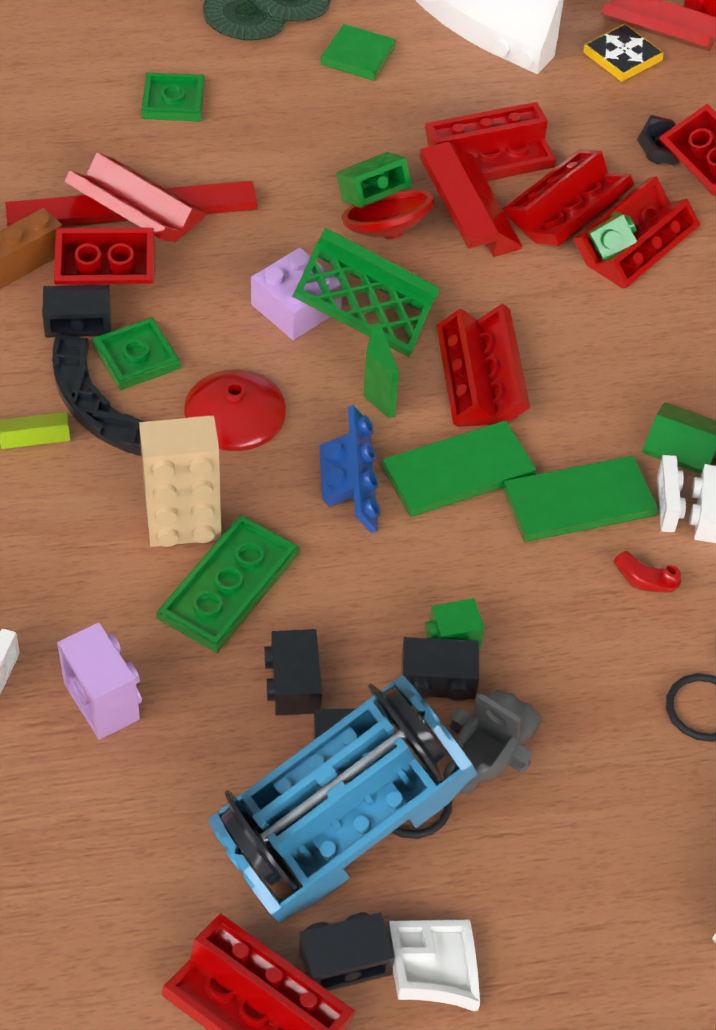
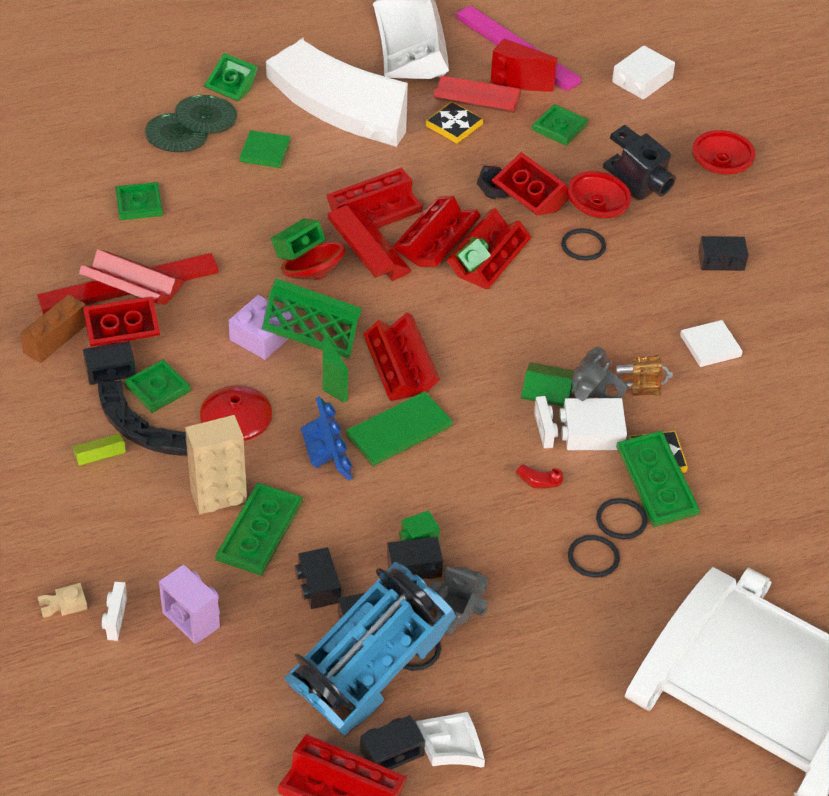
camera: 10 degrees left, 5 degrees down
(579, 498) = (485, 435): green tile -> none

